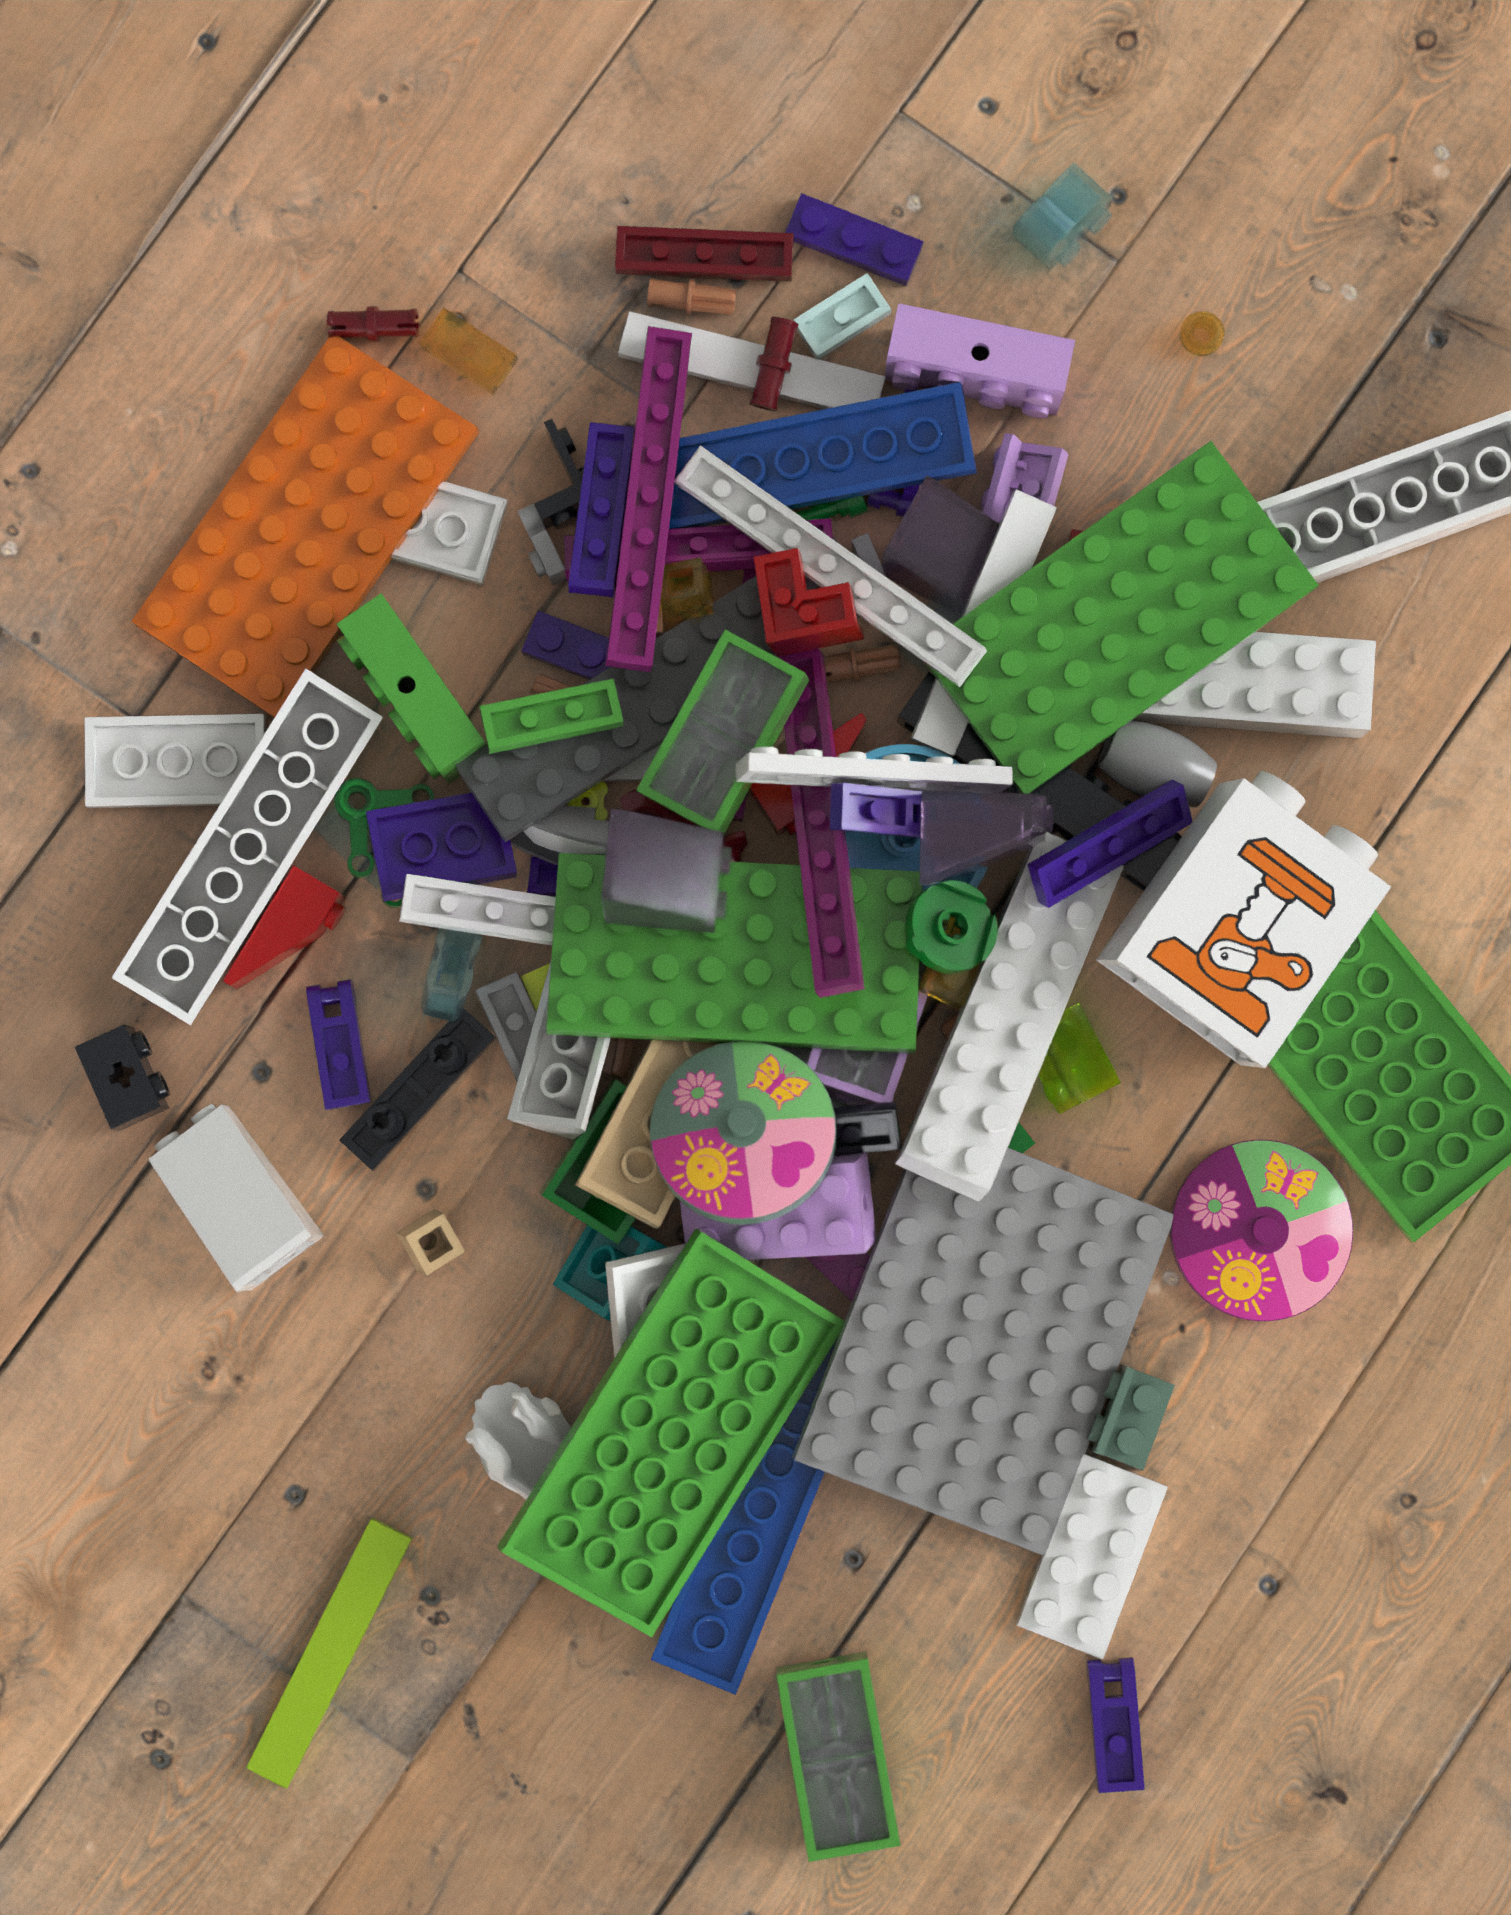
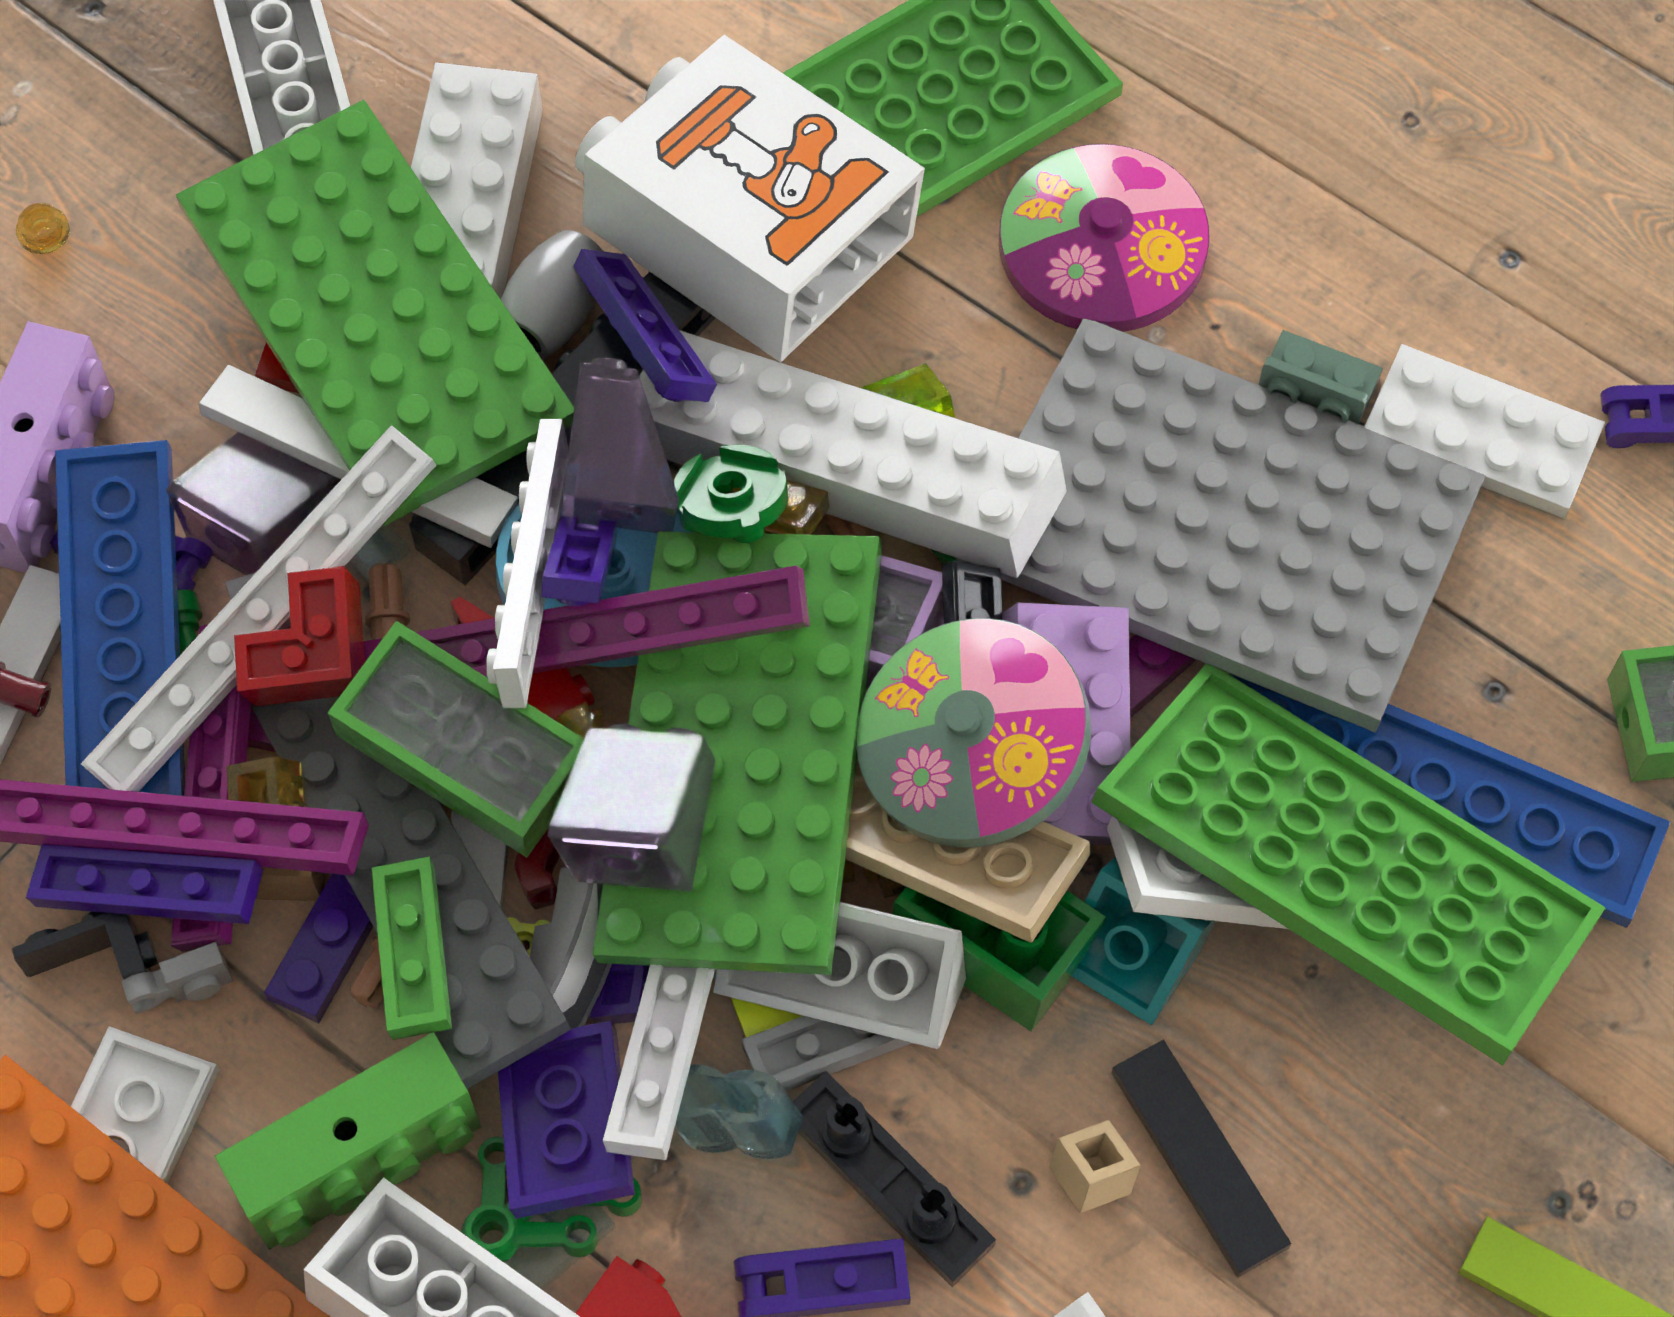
camera: 90 degrees left, 20 degrees down
(448, 1322) = (1201, 1158): none -> black tile
(516, 1435) = (1357, 1057): white hair -> none
(756, 824) = (581, 718): none -> clear yellow plate
(1023, 467) = (175, 416): lavender bracket -> none

